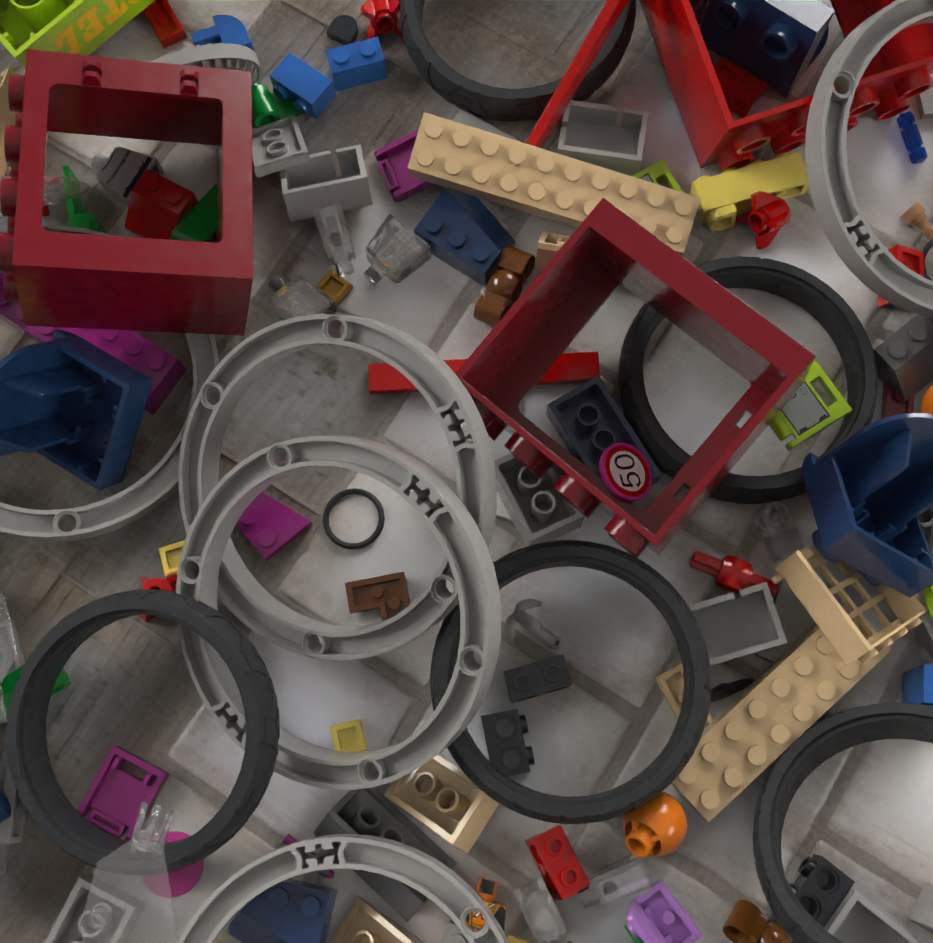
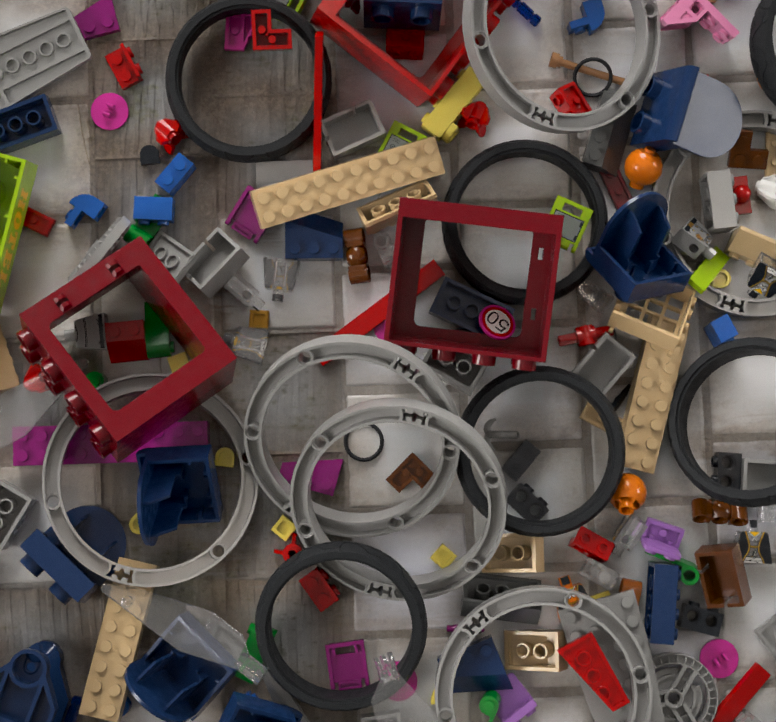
camera: 45 degrees left, 10 degrees up
(162, 667) = (319, 589): none -> red bracket
(169, 423) = (225, 457): none -> light yellow tile

